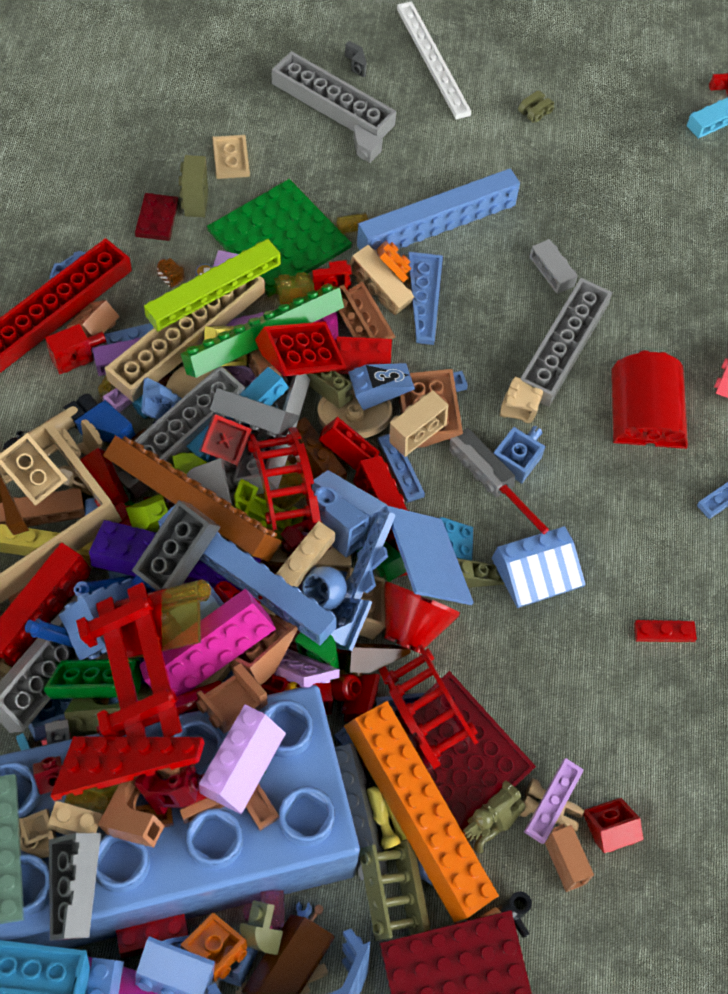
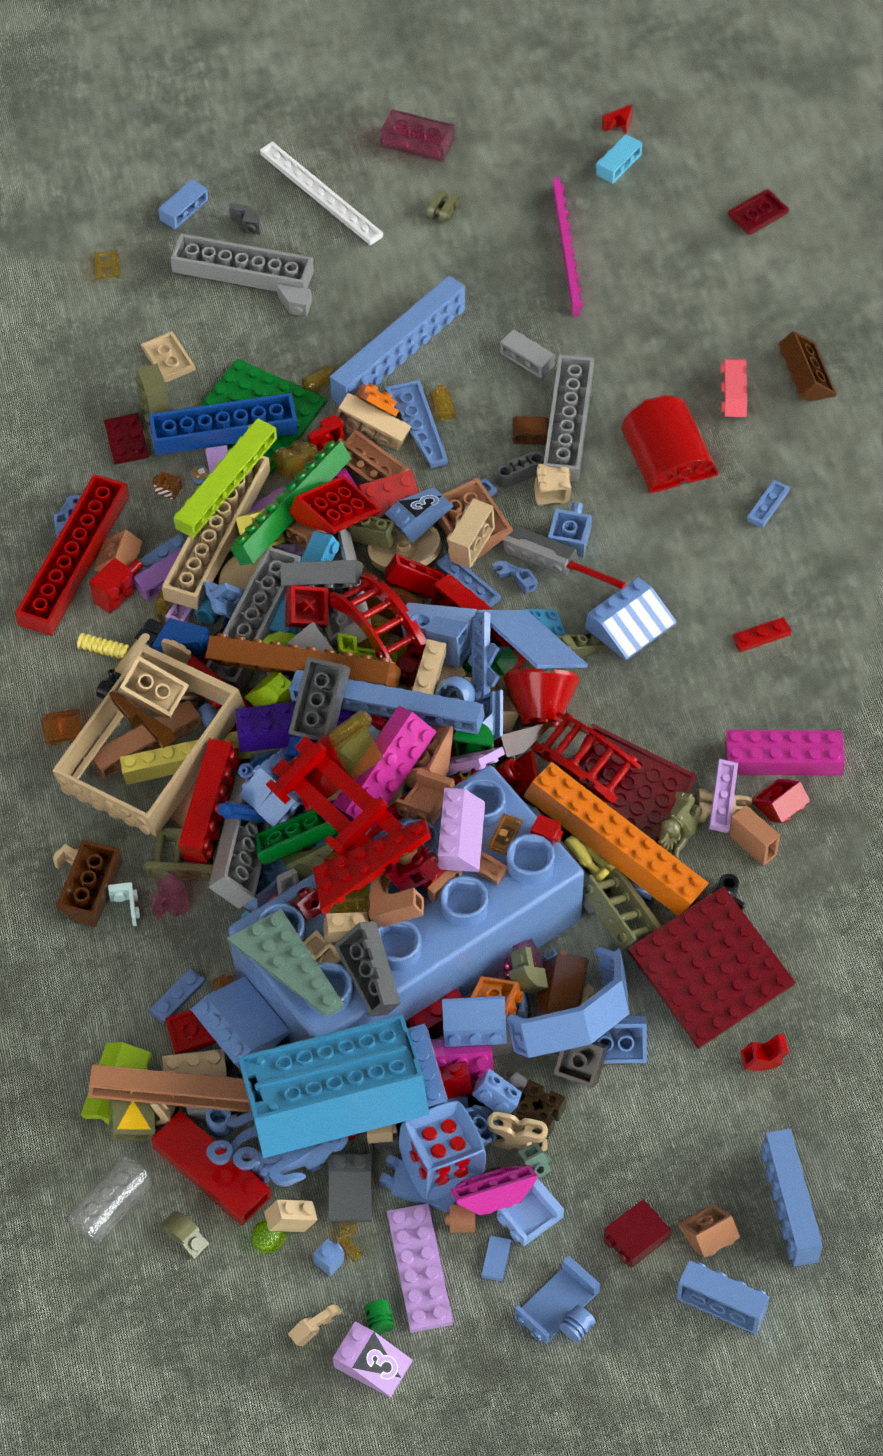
camera: 15 degrees left, 5 degrees down
(33, 403) = (101, 646): none -> light yellow piece
(215, 57) = (107, 264): none -> clear yellow piece
(241, 231) = (220, 423): none -> blue brick
(294, 774) = (505, 833): none -> clear orange tile
(309, 28) = (183, 204): none -> medium blue brick
(338, 790) = (547, 828): none -> red brick
(455, 285) = (443, 403): none -> clear yellow hinge
(455, 492) = (507, 570): none -> medium blue piece
(497, 373) = (519, 468): none -> dark grey beam
(523, 339) = (530, 430): none -> reddish brown piece
(540, 37) = (417, 135): none -> clear pink brick
(631, 185) = (567, 250): none -> dark pink plate
(639, 773) = (786, 752): none -> dark pink brick

